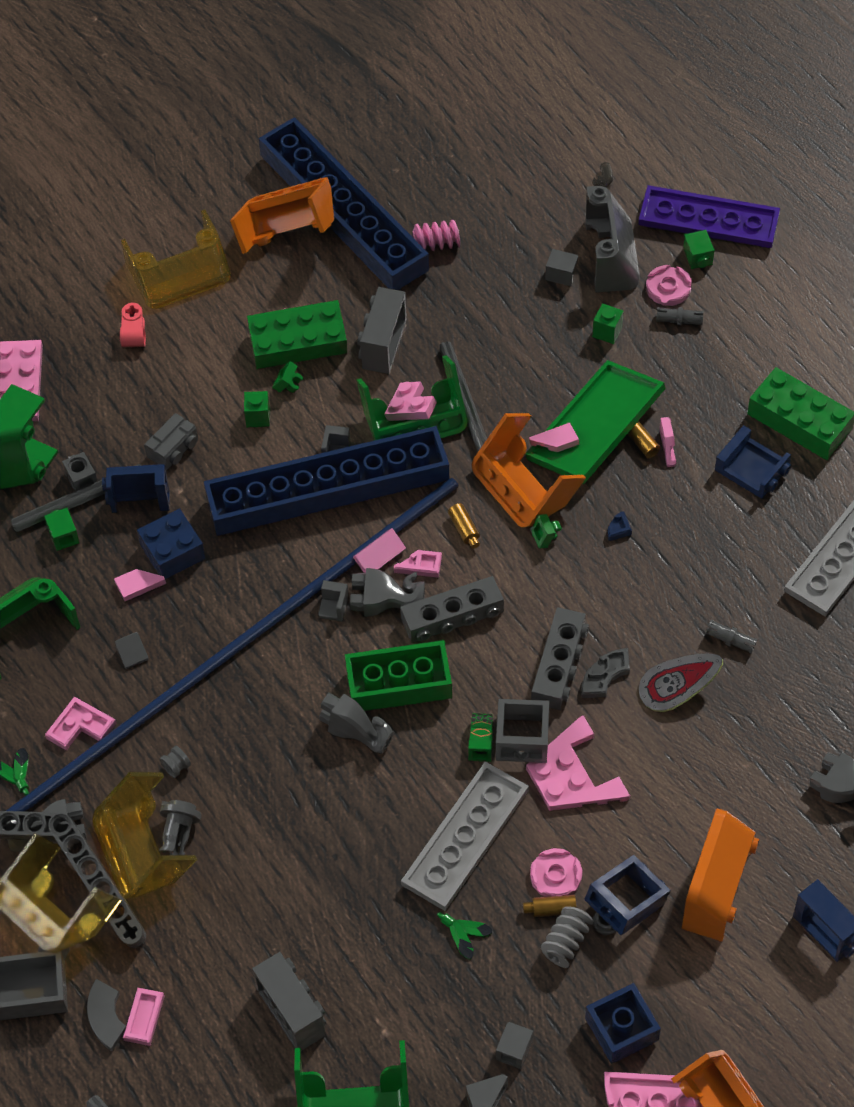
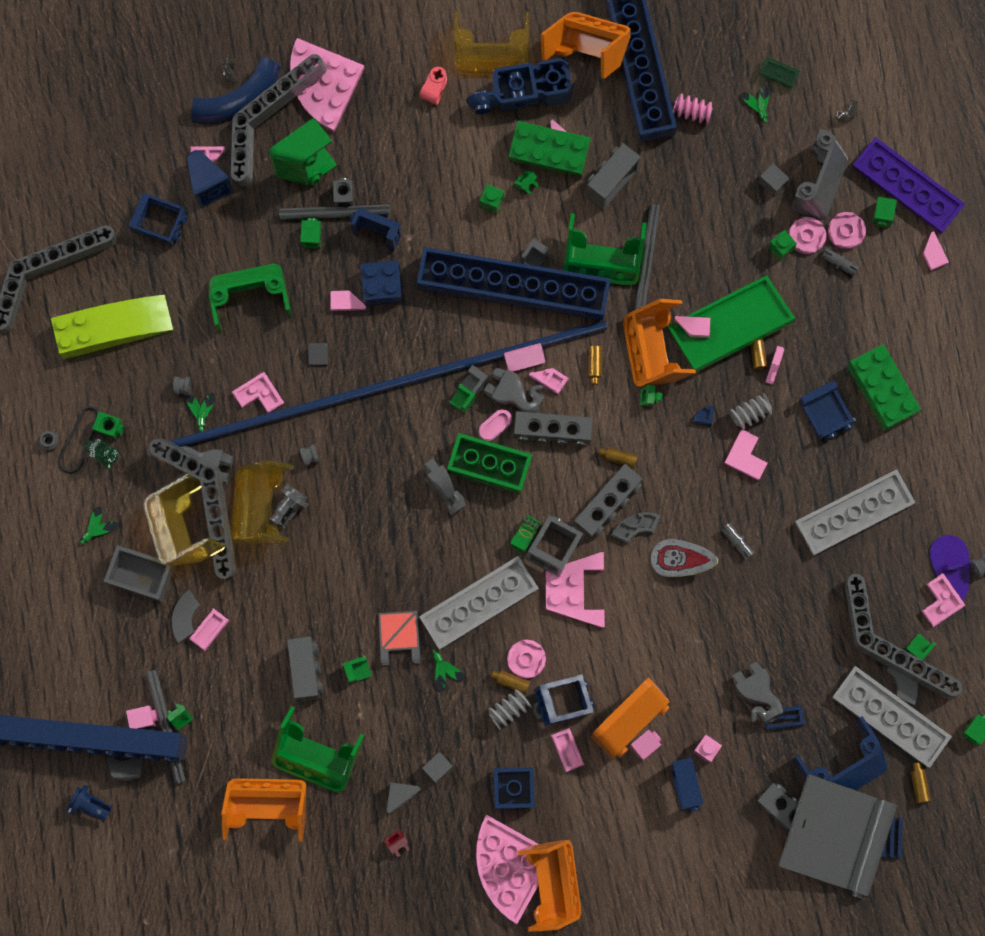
camera: 25 degrees right, 20 degrees up
(171, 441) = (419, 197): dark grey brick -> none
(237, 284) = (524, 86): none -> dark blue brick
(330, 623) = (463, 399): none -> green panel
(354, 977) = (357, 669): none -> green panel
(383, 634) = (495, 425): none -> bright pink tile
(384, 914) = (399, 633): none -> coral flag
(409, 404) = (600, 246): bright pink plate -> none
(505, 209) = (760, 105): none -> green piece
(510, 169) = (779, 72): none -> clear green plate
(543, 608) = (619, 457): none -> pearl gold cylinder
(634, 304) = (808, 235): none -> bright pink tile
(662, 954) = (567, 750): none -> bright pink tile
(669, 497) = (751, 411): none -> light grey piece
(685, 552) = (741, 458): none -> bright pink tile
(753, 902) = (646, 744): none -> bright pink brick
(775, 268) = (934, 253): none -> bright pink tile
(829, 871) = (707, 749): none -> bright pink brick

